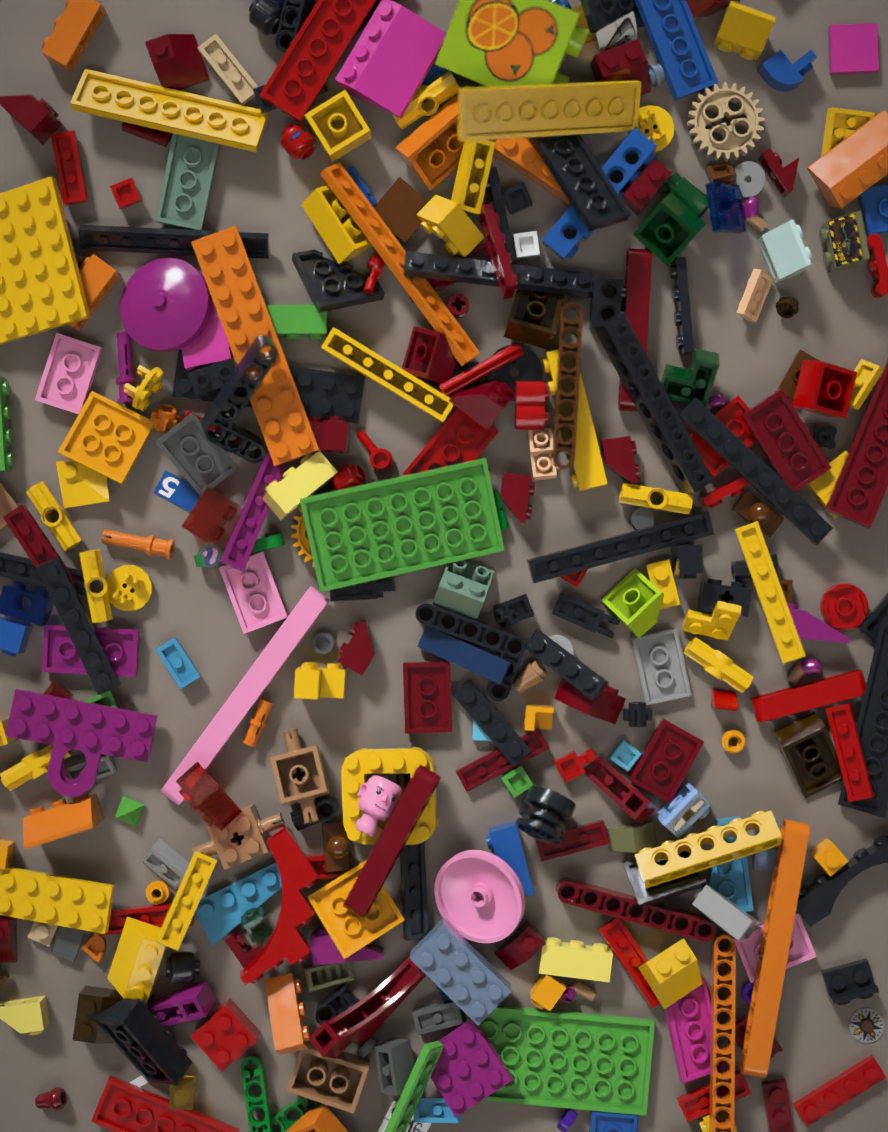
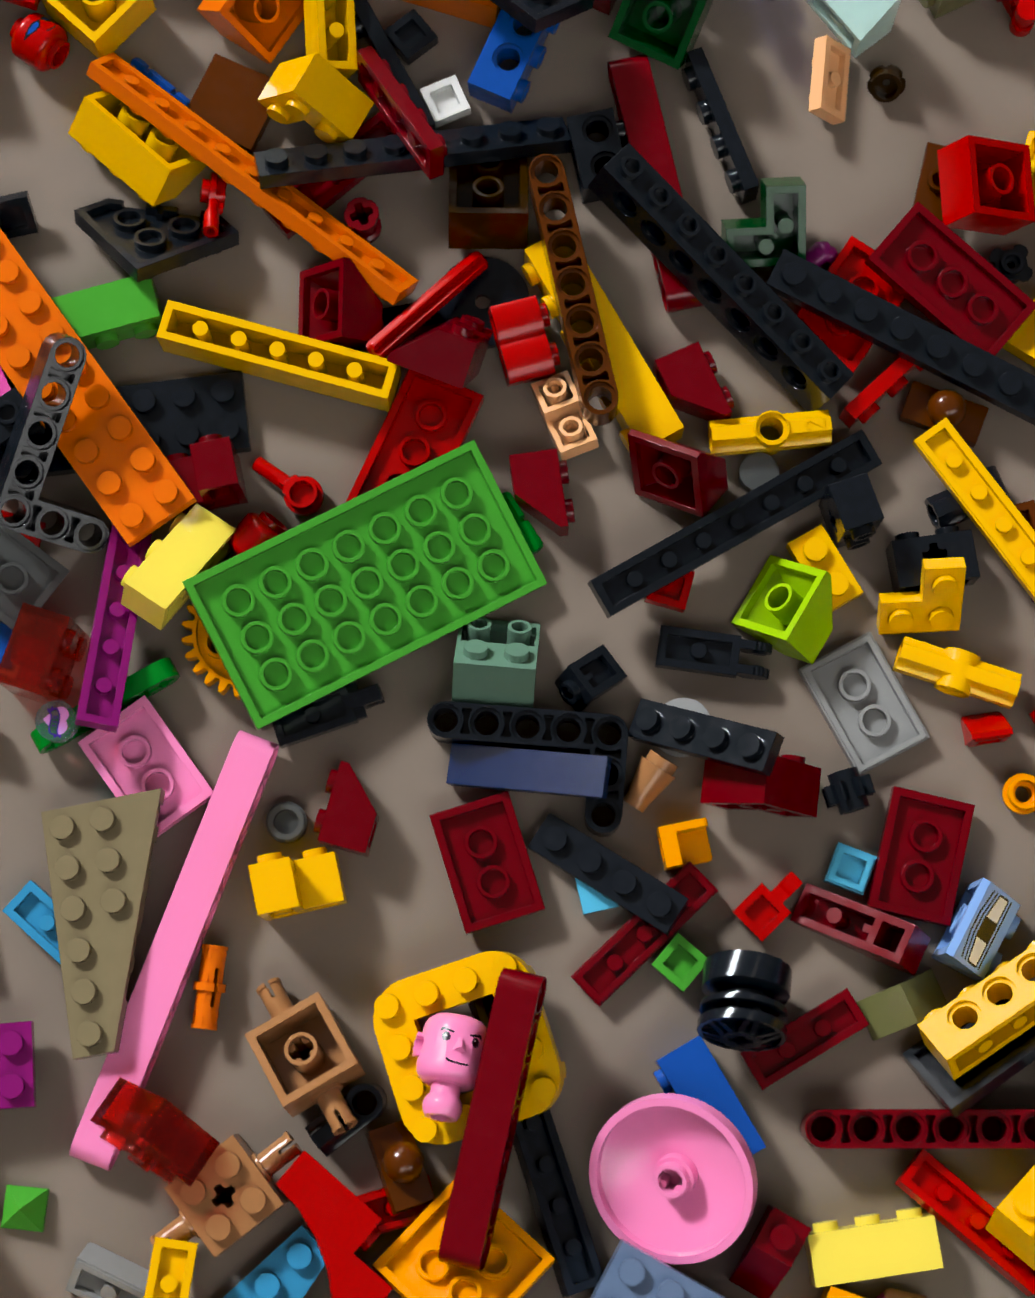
camera: 10 degrees left, 10 degrees down
(210, 656) = (99, 895): none -> dark tan wing
(596, 509) = (676, 473): none -> dark red slope

